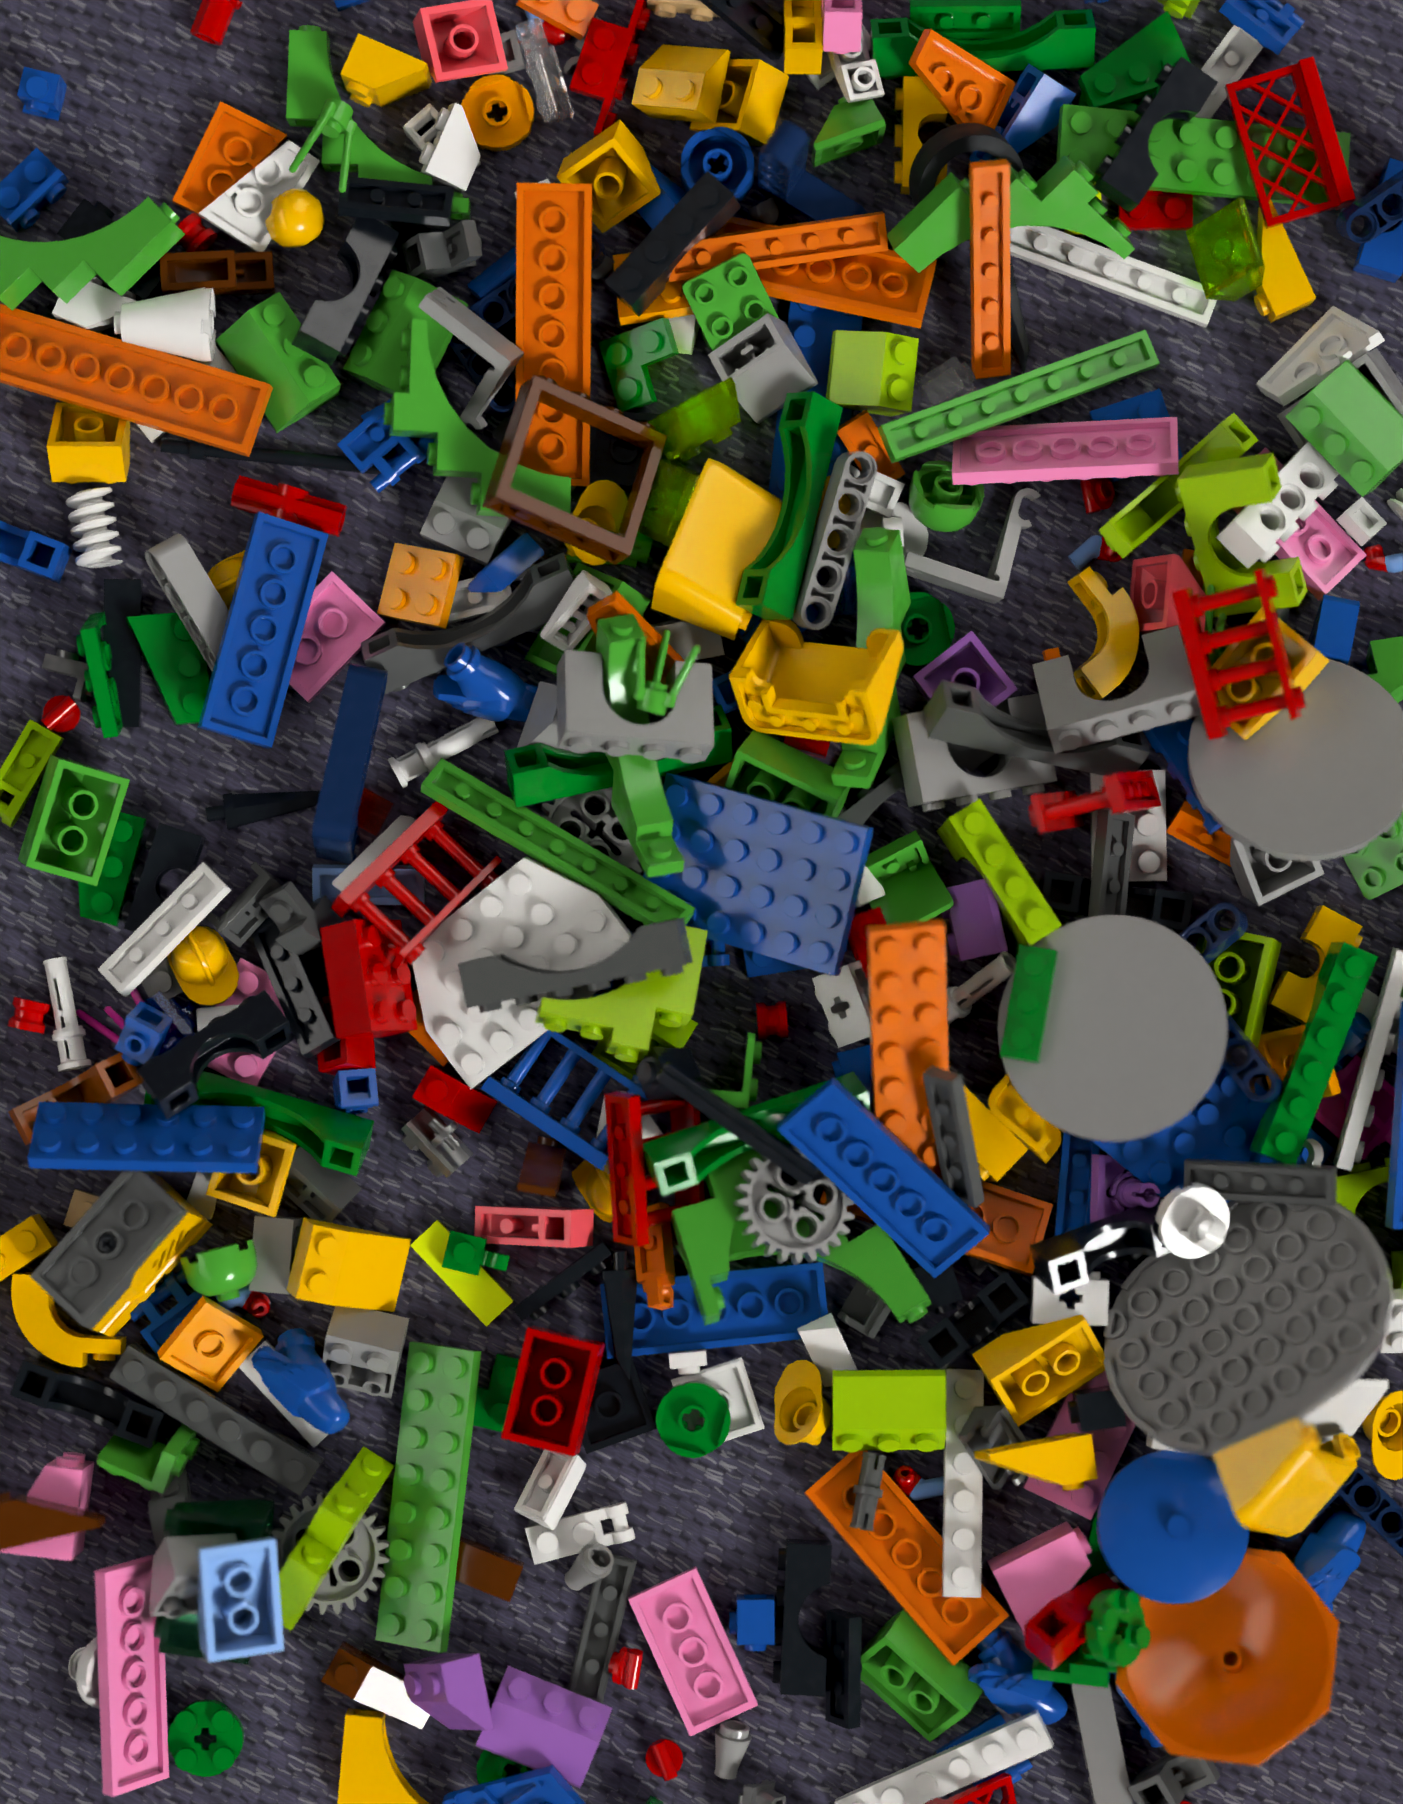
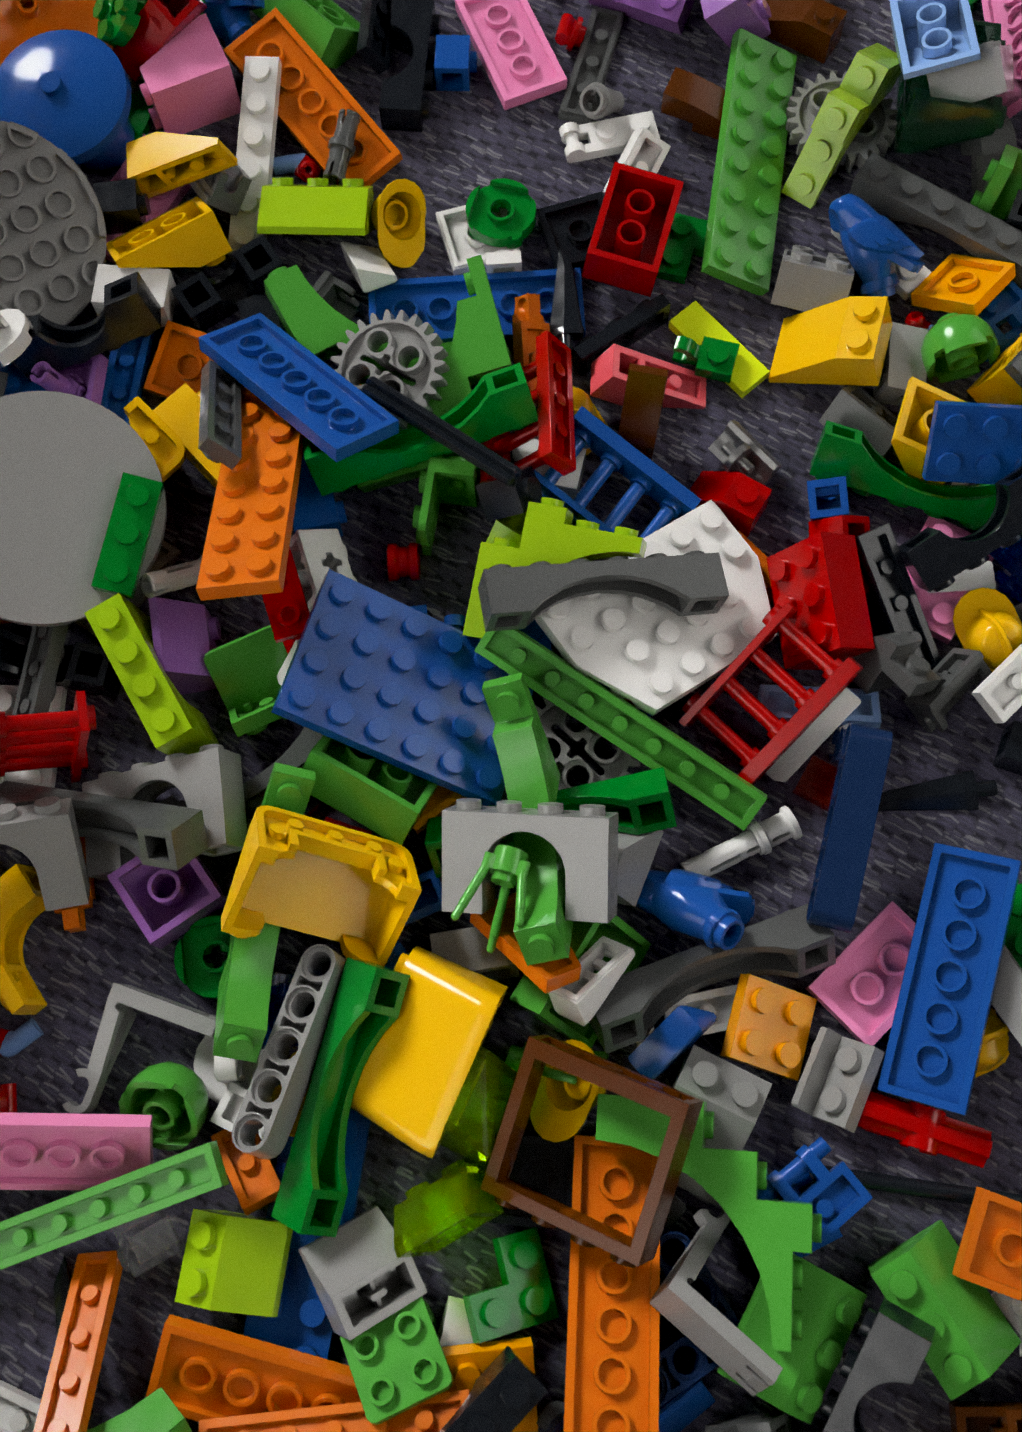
camera: 170 degrees left, 15 degrees down
(361, 543) = (837, 1079): none -> light grey bracket

